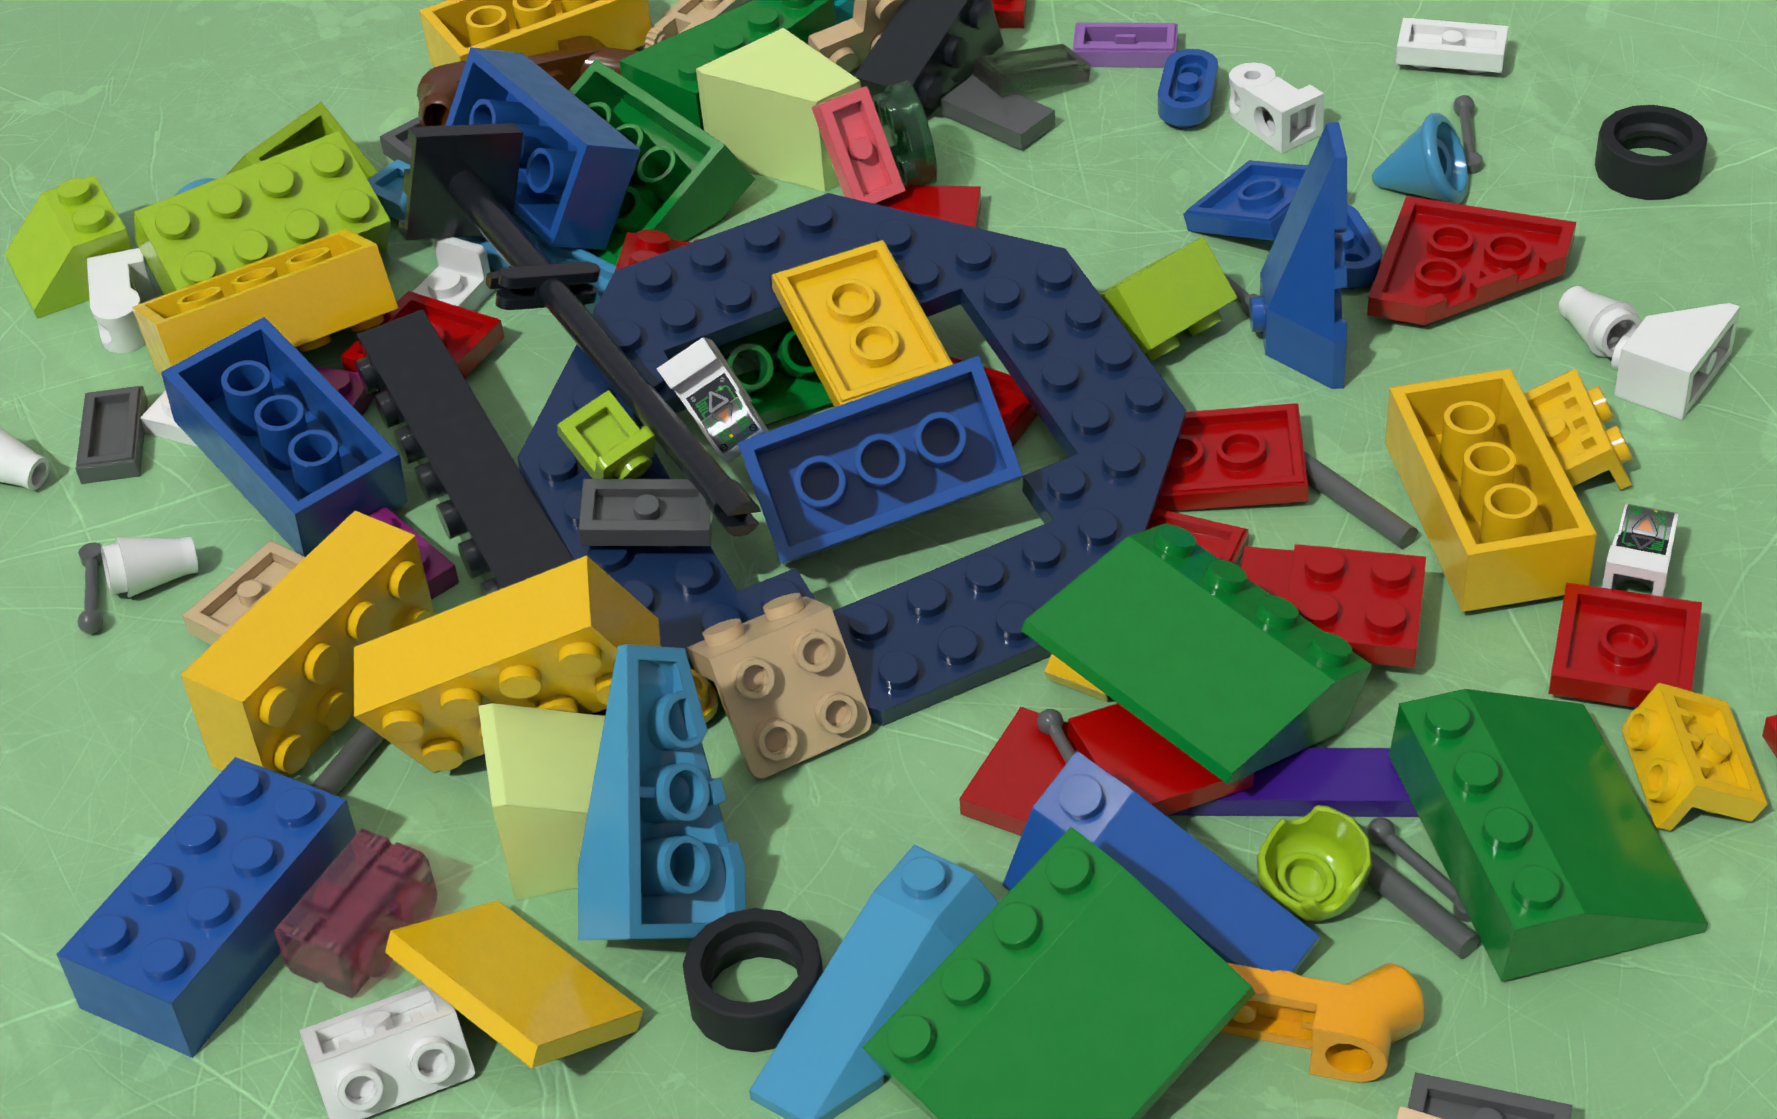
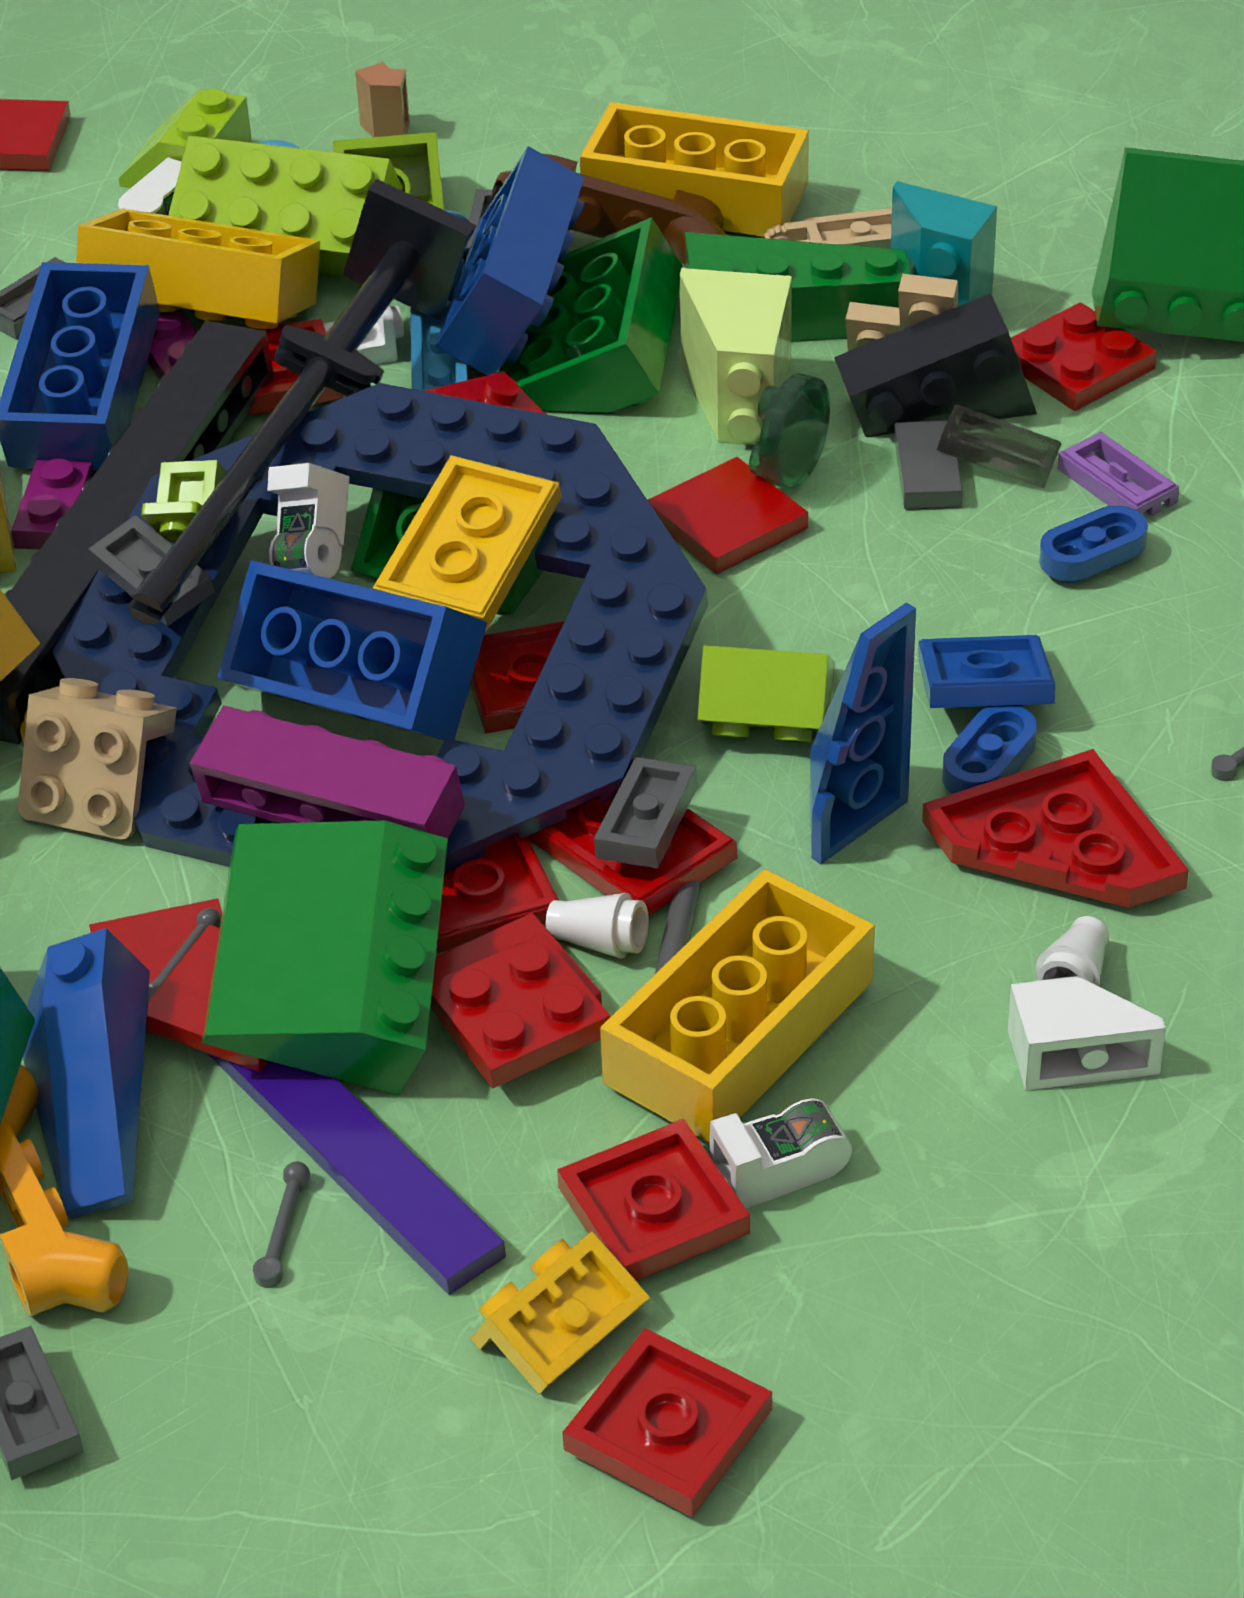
camera: 45 degrees right, 0 degrees up
(197, 123) = (383, 100): none -> nougat piece
(858, 147) = (721, 413): coral plate -> none
(1007, 556) = (320, 776): none -> magenta brick
(1234, 422) = (646, 812): none -> dark grey plate
(1275, 108) = (1130, 606): white leg -> none
(1301, 516) = (601, 923): none -> white cone
(1315, 864) = (195, 1151): lime hair -> none
(1422, 908) = (242, 1213): dark grey bar -> none
(1427, 163) = (1167, 740): dark azure hat -> none
(1538, 830) = (367, 1256): green slope -> none
(1576, 429) = (895, 1027): yellow bracket -> none

